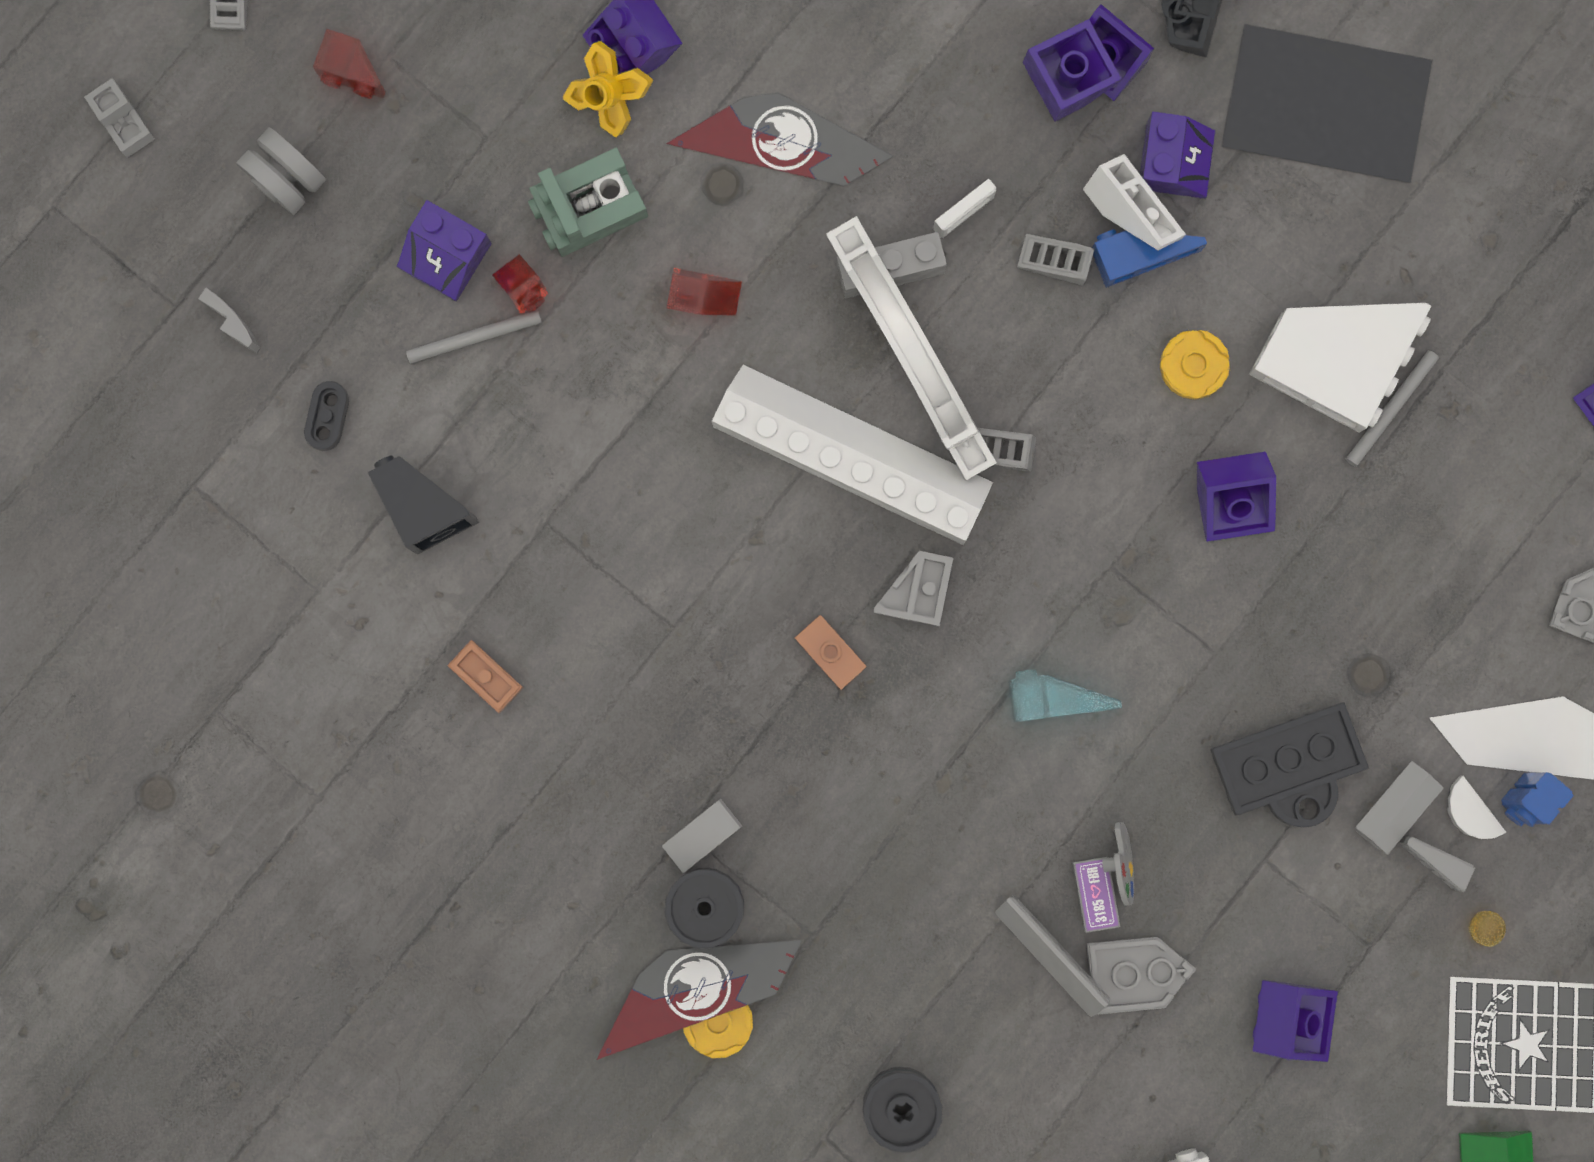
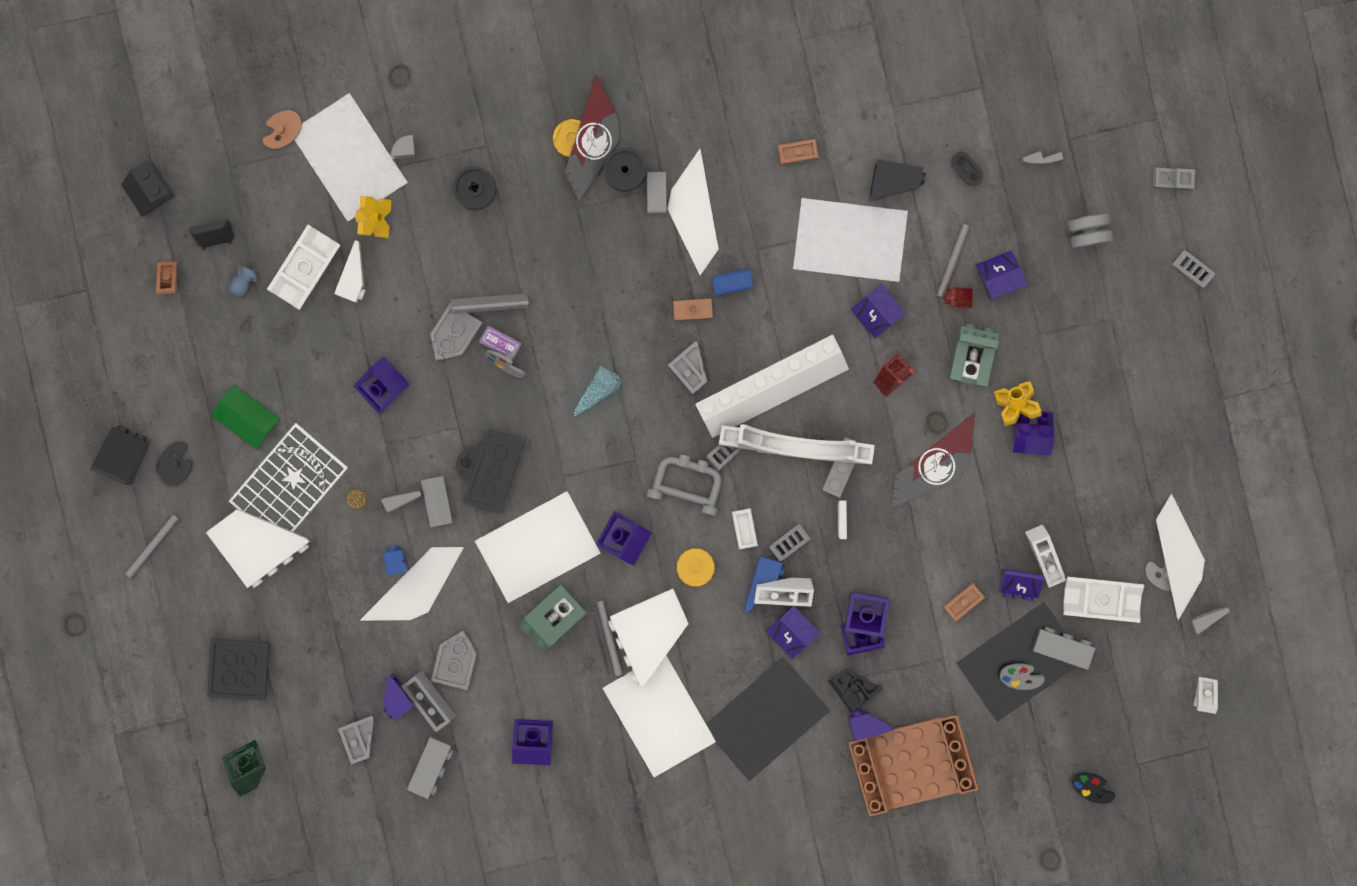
camera: 125 degrees right, 5 degrees up
(346, 63) = (1119, 298): clear red slope -> none
(556, 505) = (850, 239): none -> flat silver sticker
(627, 385) = (878, 311): none -> dark purple slope
(692, 759) = (693, 215): none -> white sticker
(747, 624) = (732, 282): none -> blue brick
(1058, 495) = (700, 466): none -> light grey bar
(1085, 337) = (744, 528): none -> white tile
(1344, 612) = (537, 547): none -> white sticker
(1447, 249) = (660, 718): none -> white sticker
(1467, 513) = (541, 629): none -> sand green brick
(1471, 813) = (410, 531): white tile -> none

